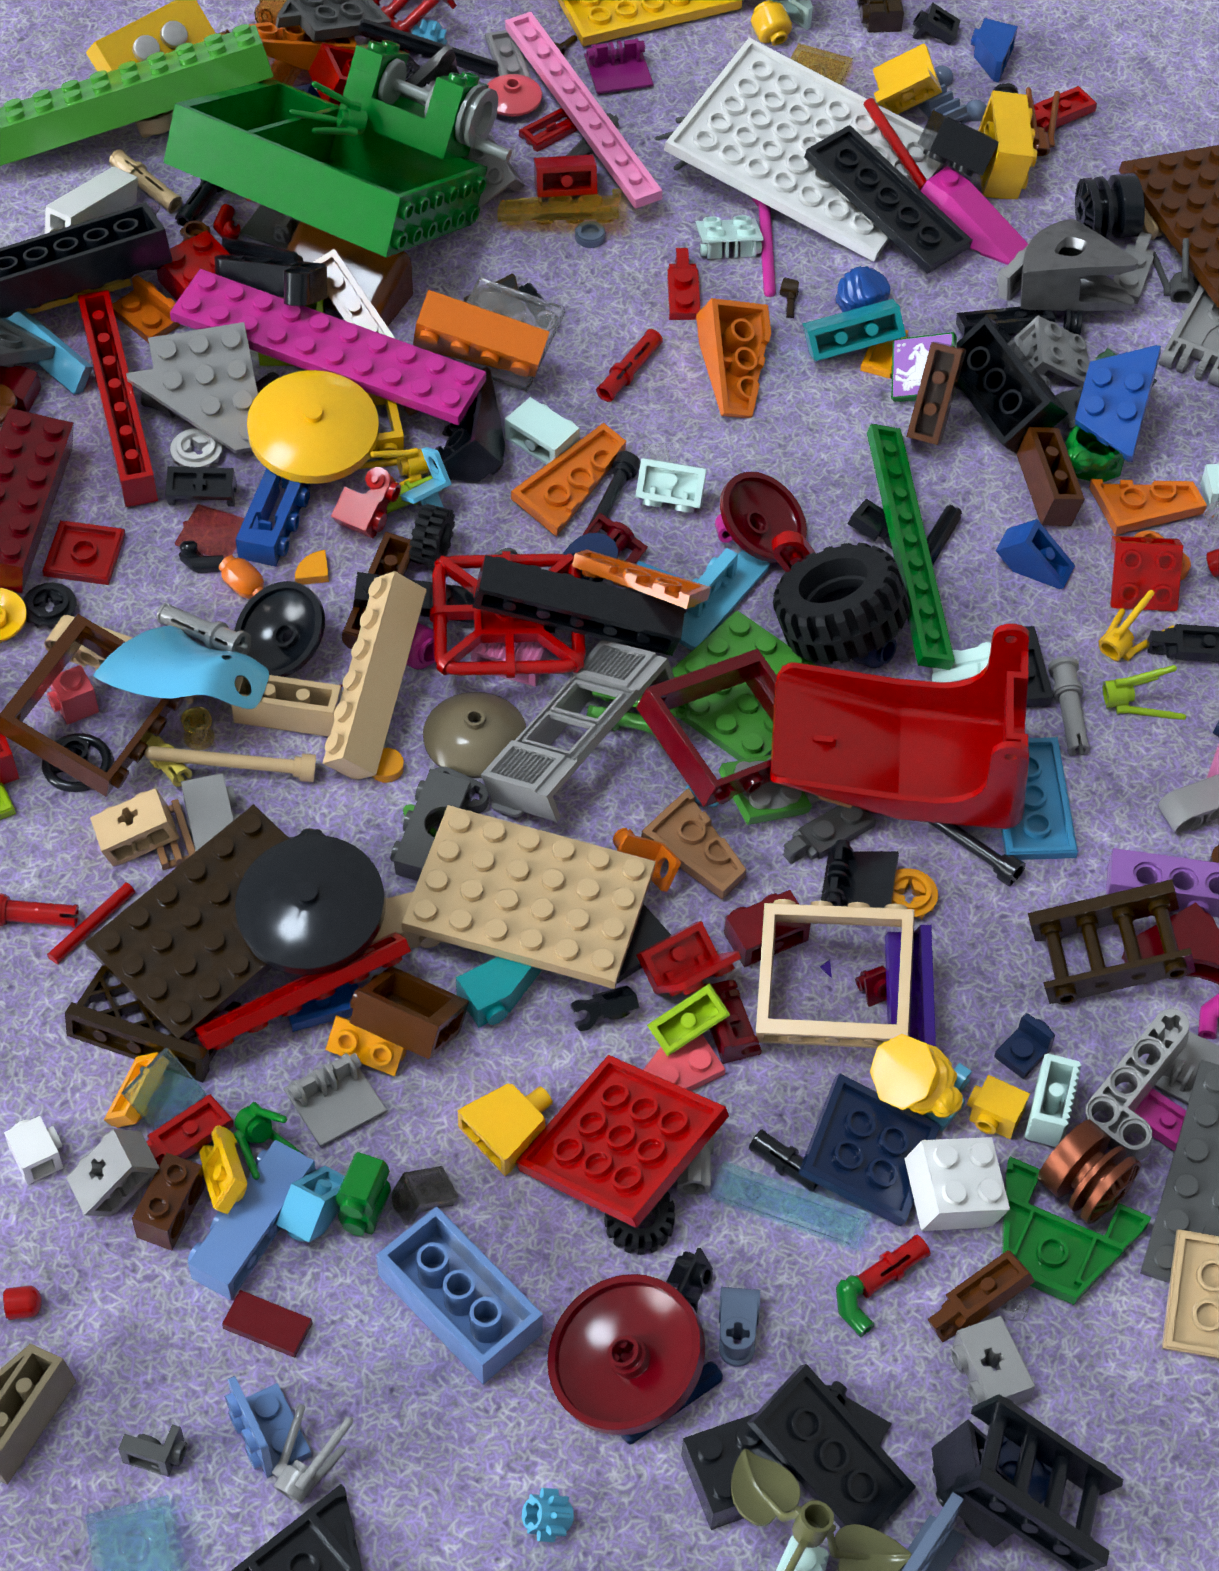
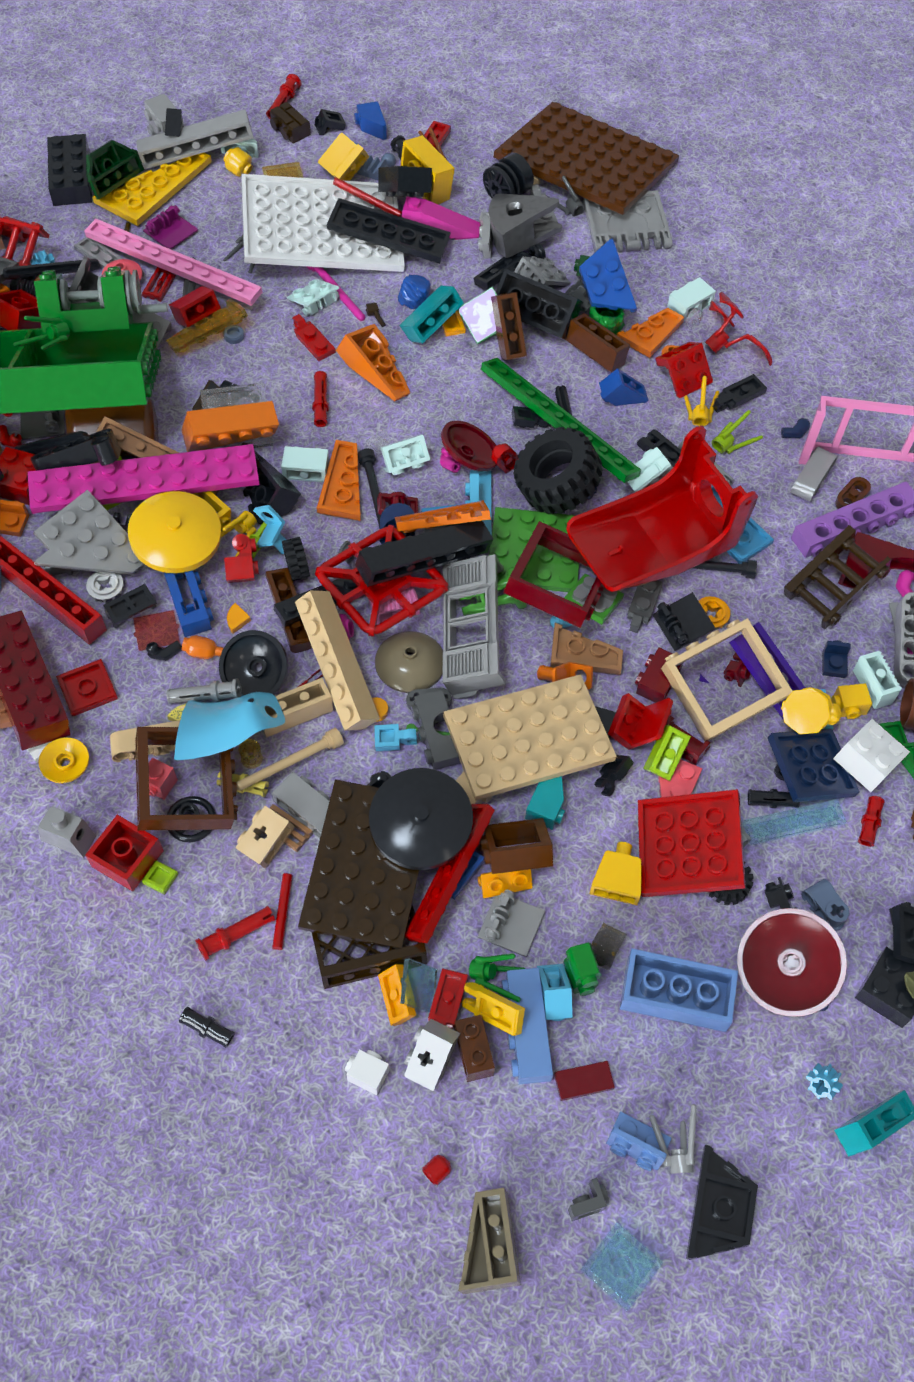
camera: 35 degrees left, 5 degrees up
(36, 600) = (94, 723): black gear -> none
(374, 804) = (389, 737): none -> medium azure plate
(848, 1307) = (868, 856): green arm -> none

